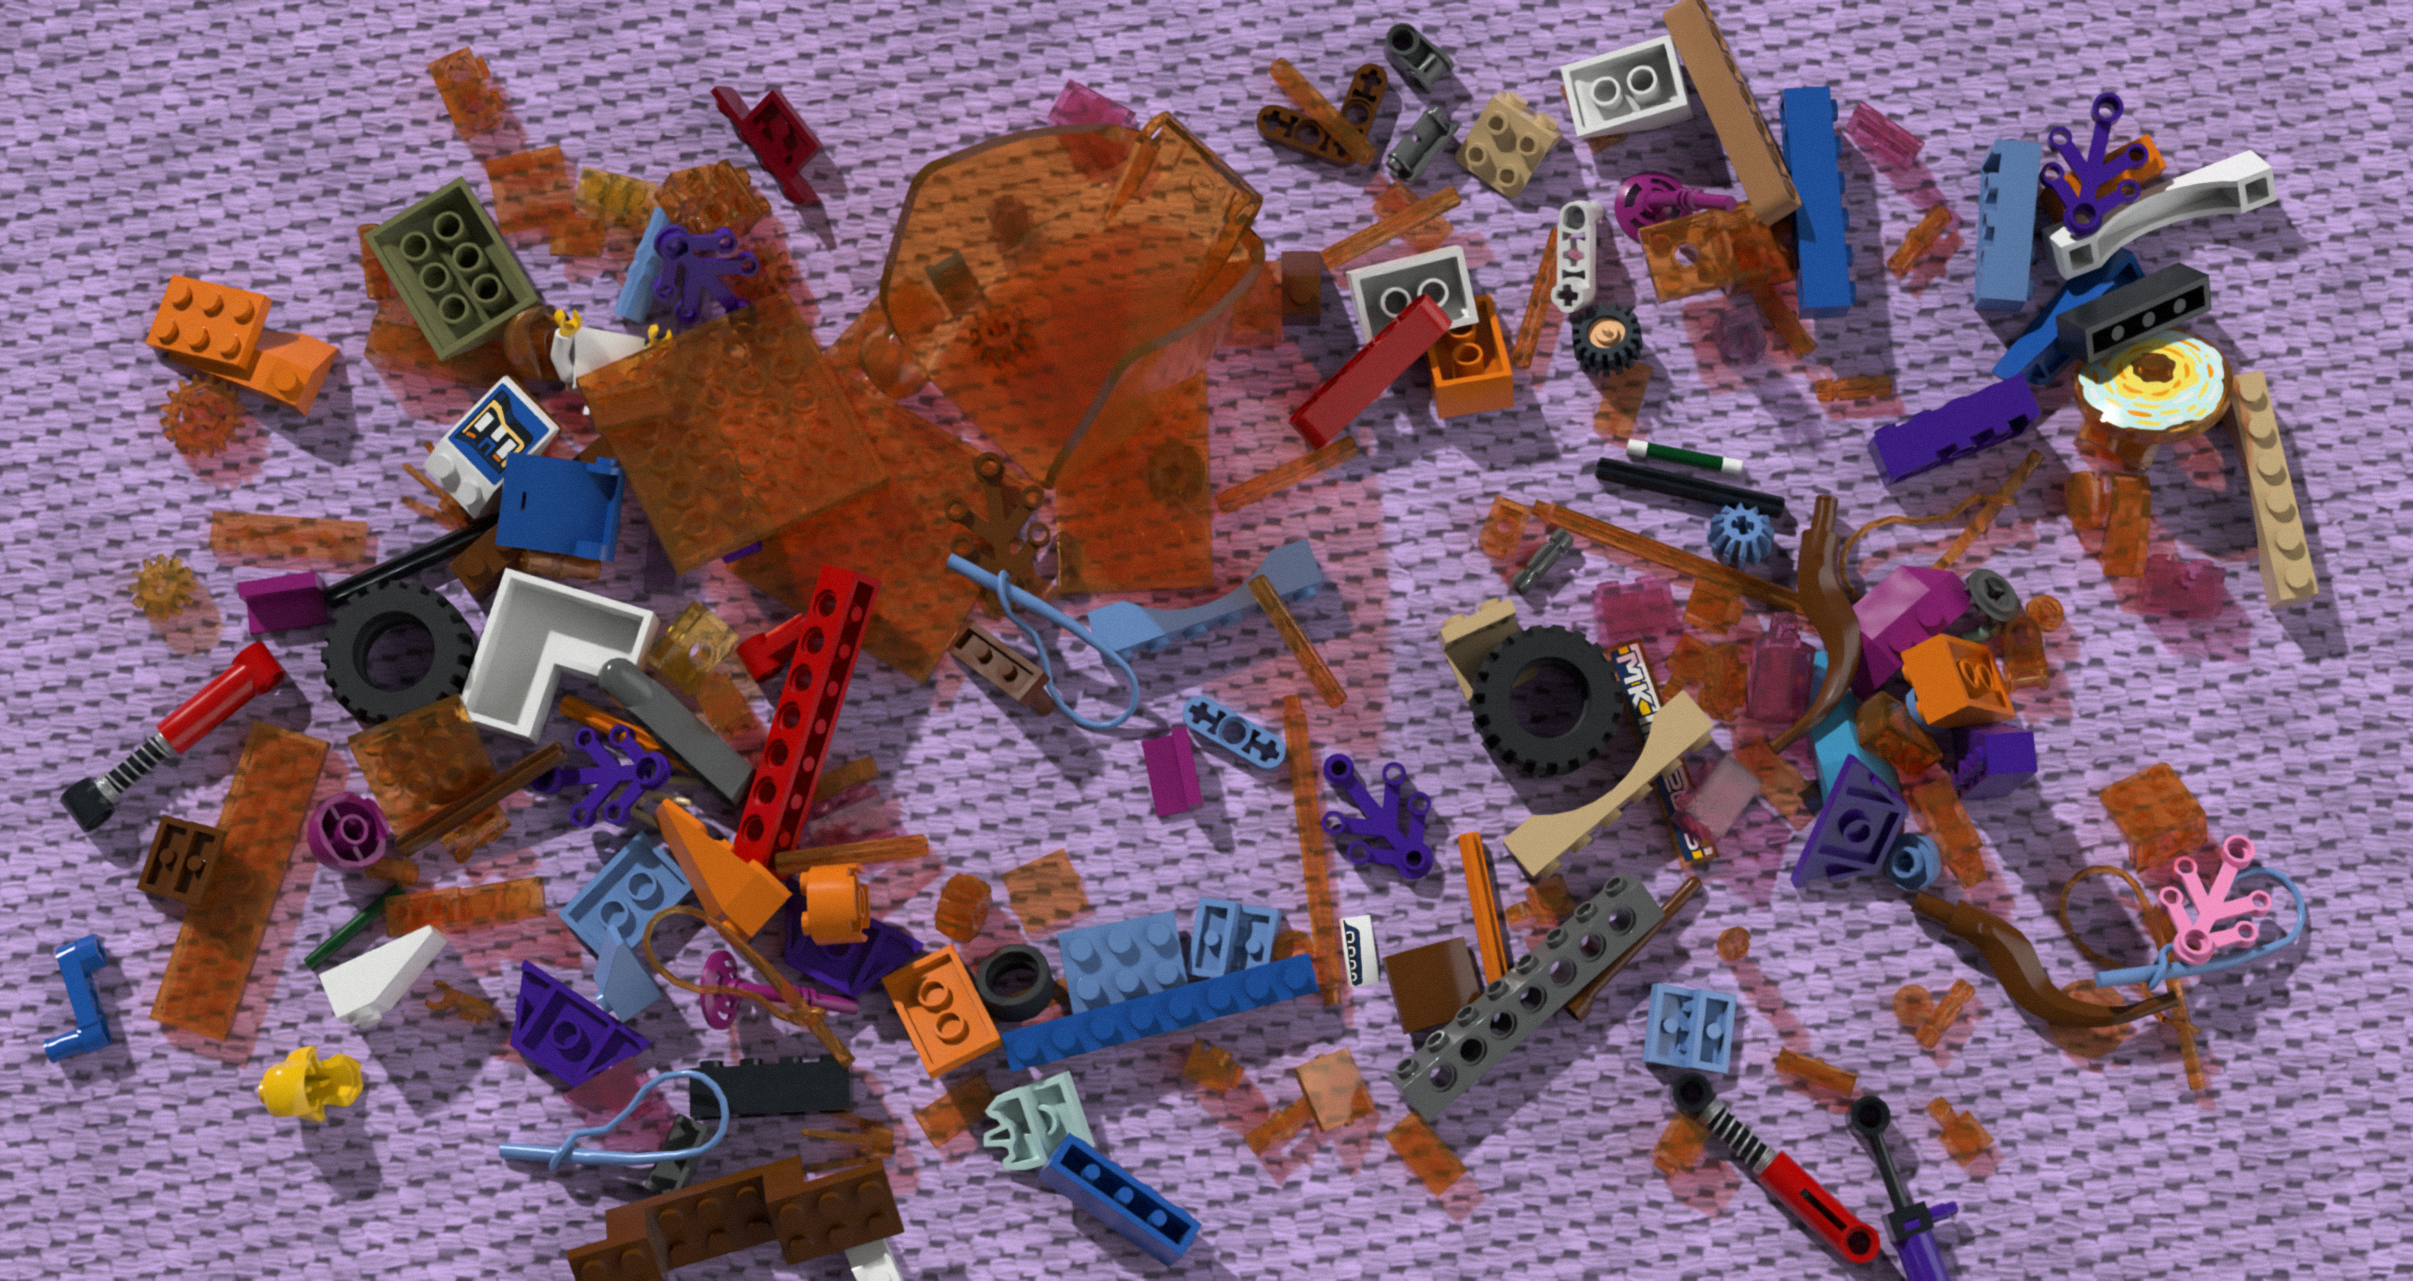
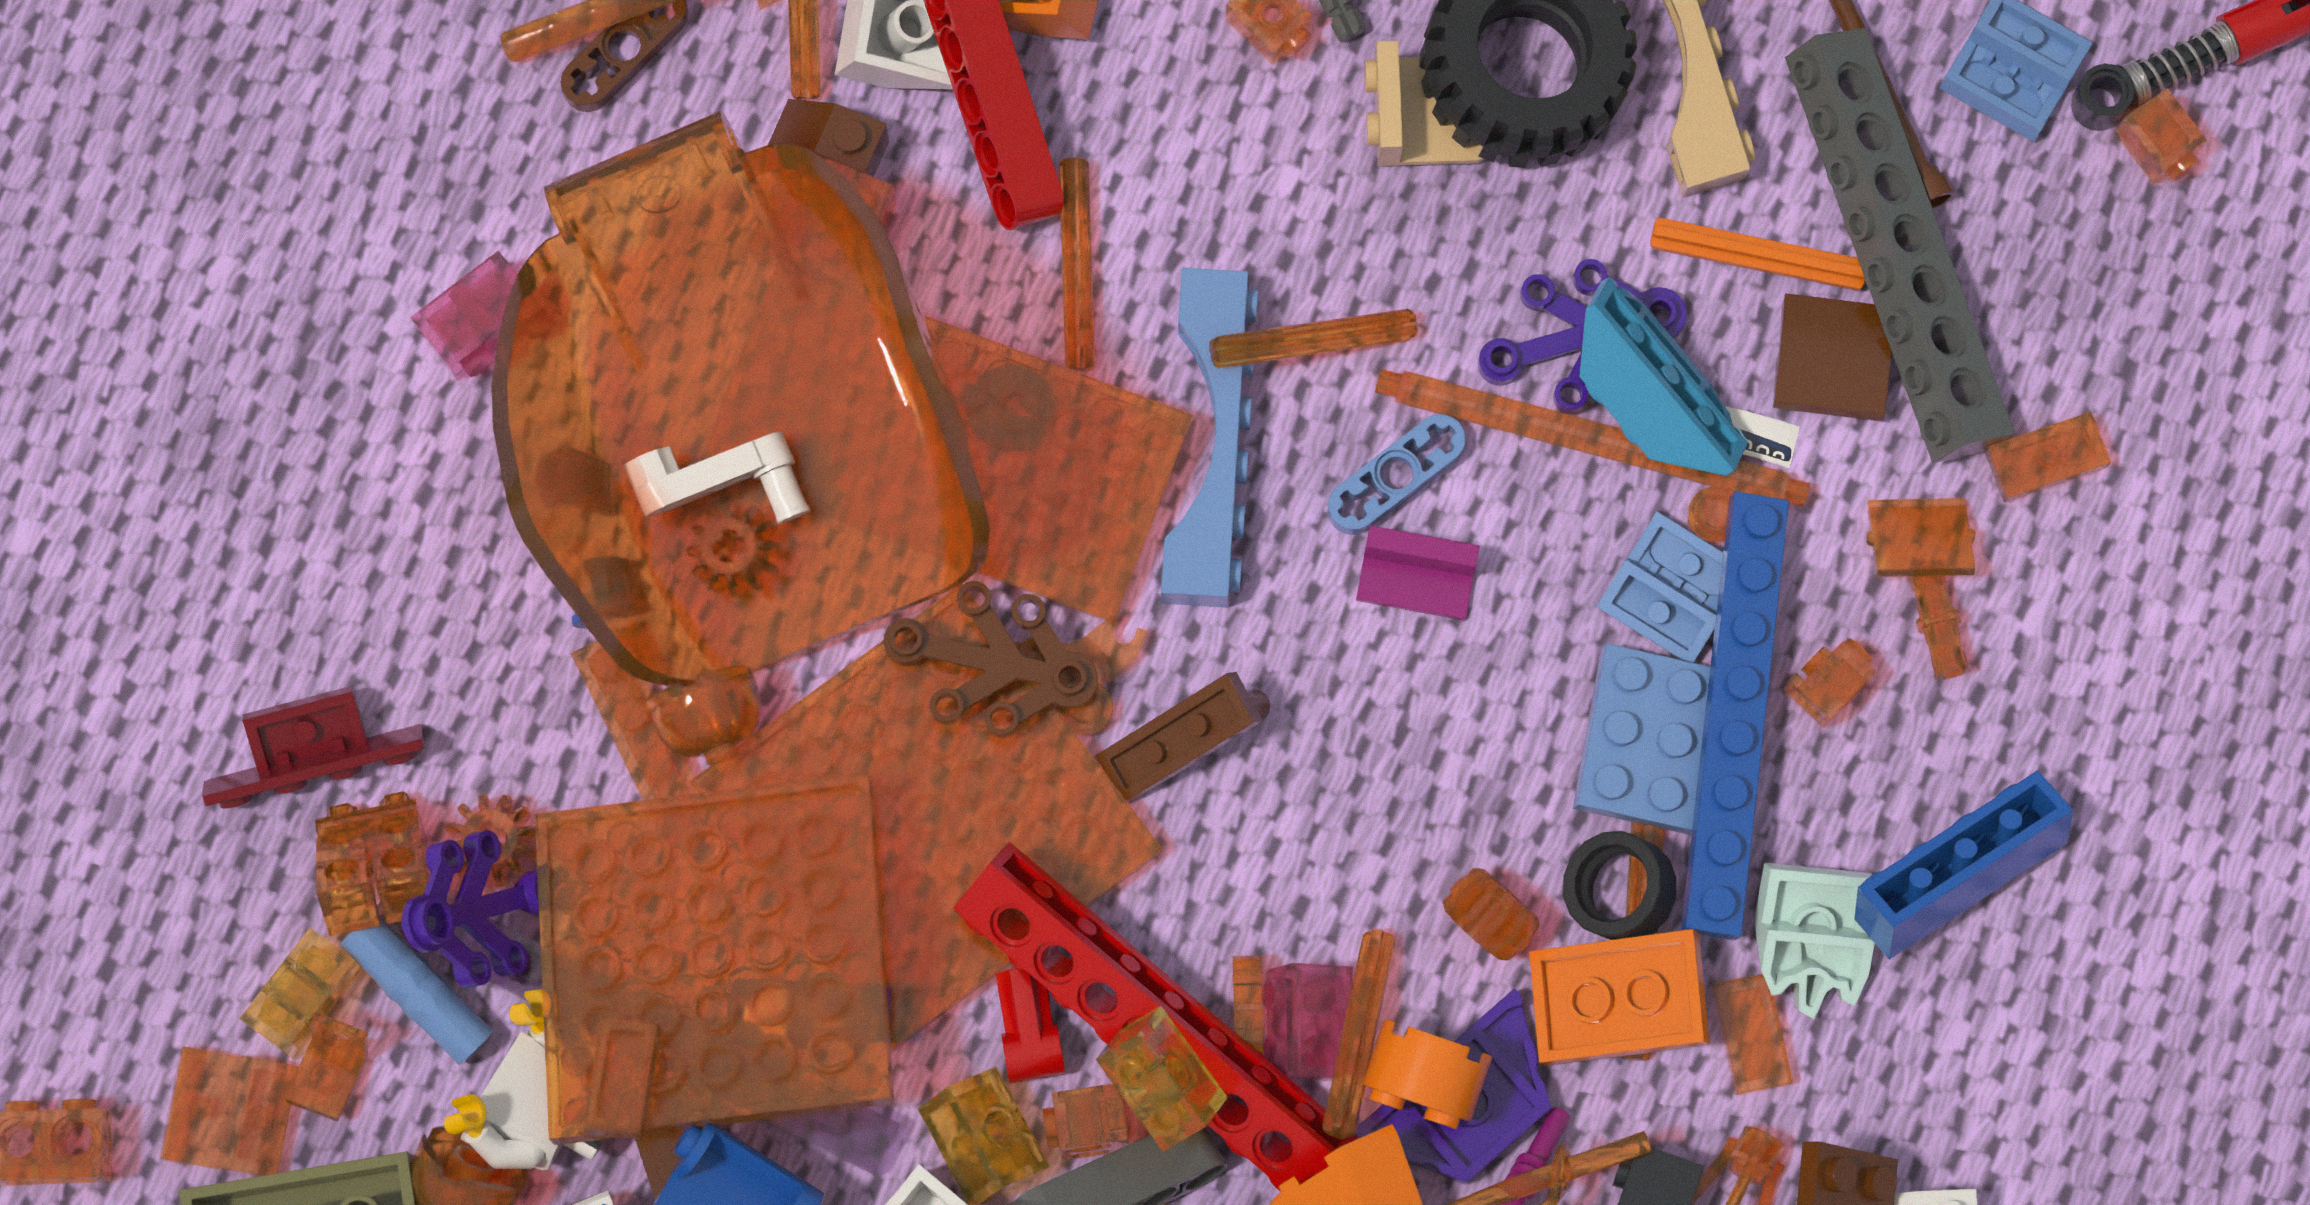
camera: 70 degrees left, 0 degrees up
(763, 737) = (1161, 1078): none -> clear yellow brick
(1008, 592) = (1123, 654): medium blue piece -> none
(1022, 274) = (664, 486): none -> white beam
(1045, 891) = (1504, 805): clear orange piece -> none
(1358, 871) = (1654, 386): none -> dark azure wedge
(1545, 901) = (1781, 174): clear orange plate -> none

